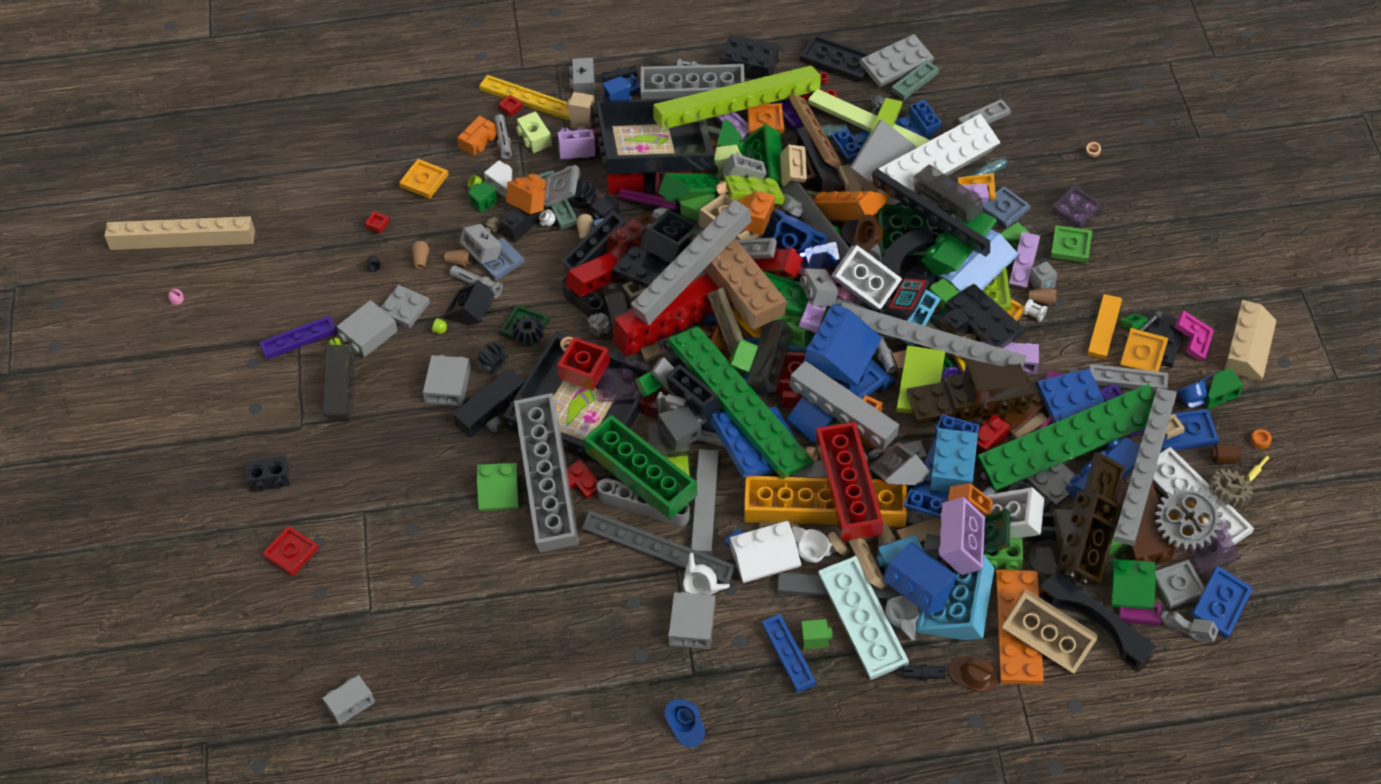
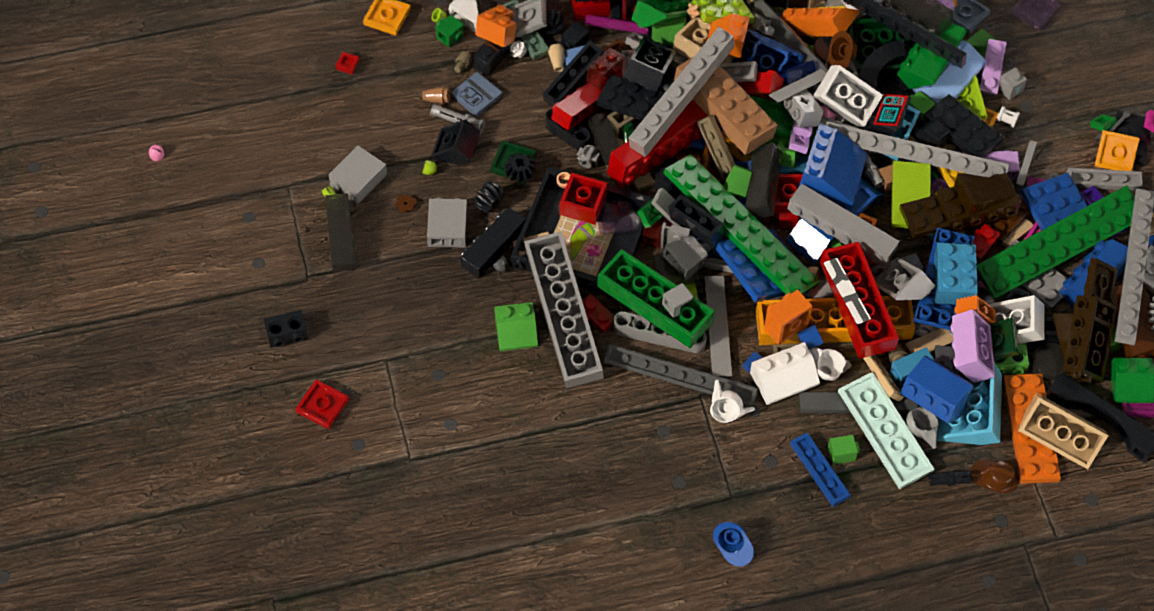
camera: 10 degrees left, 5 degrees up
(180, 233) = (148, 86): tan brick -> none
(298, 337) = (289, 187): dark purple plate -> none
(348, 699) = (406, 546): light grey brick -> none
(373, 264) = (351, 107): black hinge -> none
(405, 306) = (391, 148): light grey plate -> none
(409, 359) = (405, 203): none -> reddish brown plant
(420, 253) = (397, 94): medium nougat cone -> none
(480, 243) = (458, 80): light grey brick -> none
(655, 466) = (675, 299): none -> light grey panel
(692, 620) = (724, 444): light grey brick -> none
(771, 493) = (787, 316): none -> orange brick
(795, 516) = (811, 337): none -> blue tile
(815, 265) = (798, 86): none -> light grey sticker
(835, 470) = (847, 291): none -> sticker
(839, 545) = (852, 360): tan tile -> none
(1044, 296) = (1015, 101): medium nougat cone -> none
(1046, 359) = (1025, 166): none -> light grey tile
(1071, 244) = (1034, 47): bright green plate -> none
(1104, 326) = (1075, 129): light orange tile -> none

